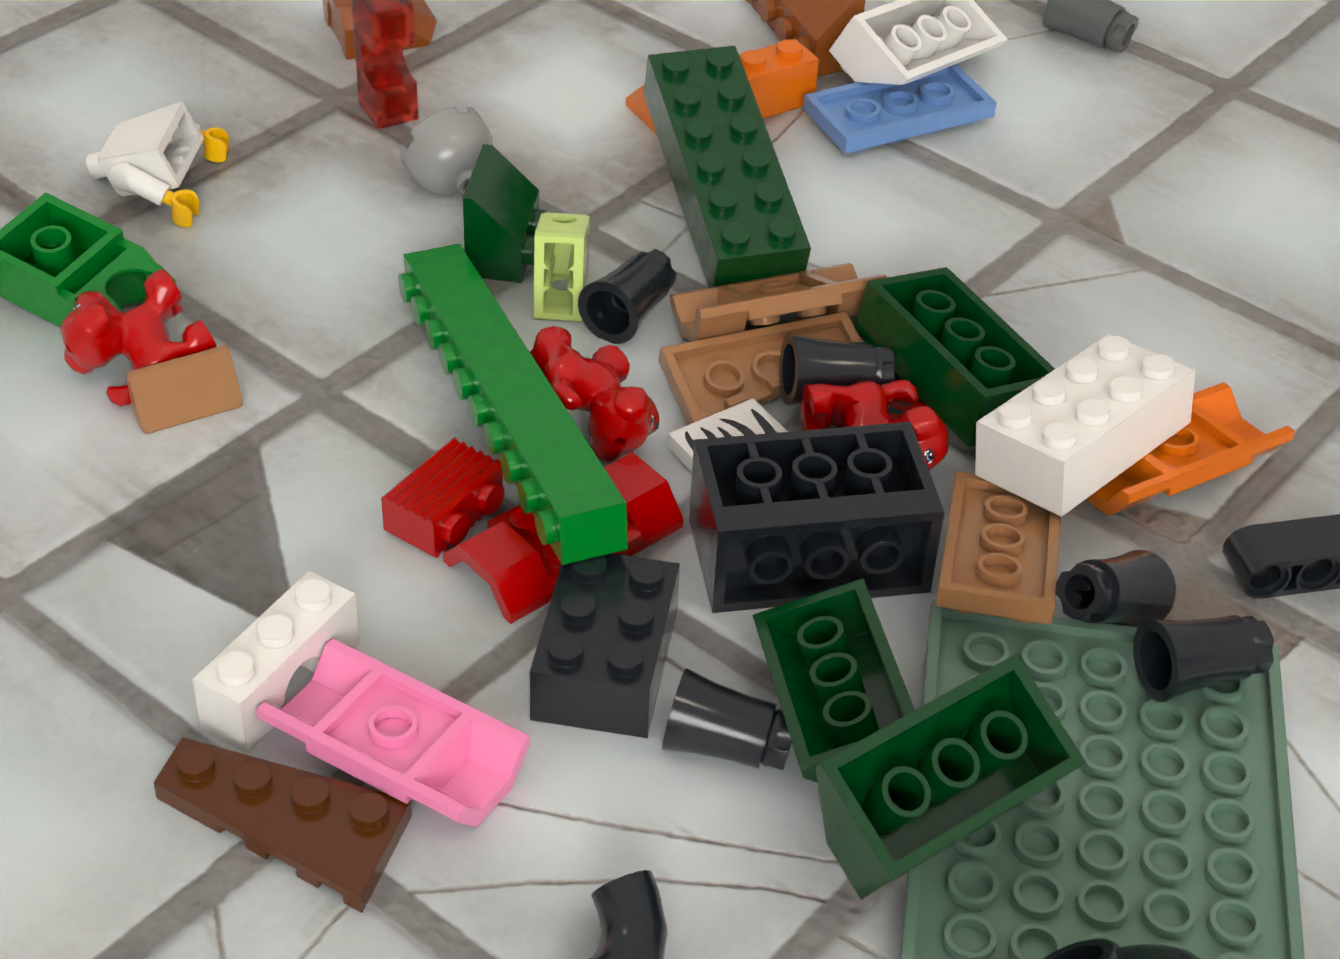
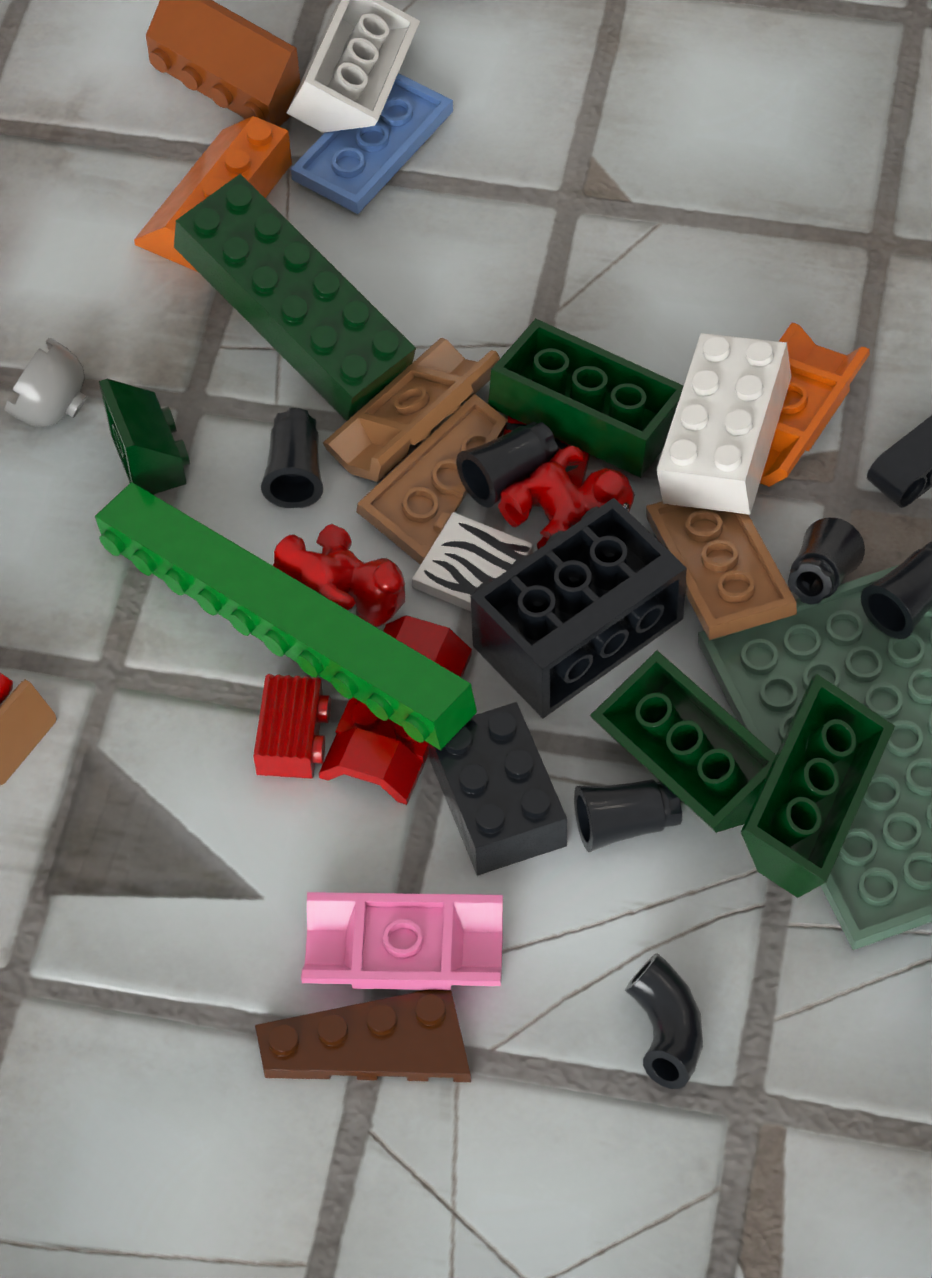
camera: 25 degrees left, 15 degrees up
(268, 653) = (276, 929): white arch -> none
(560, 254) = (219, 438): yellowish green torso -> none

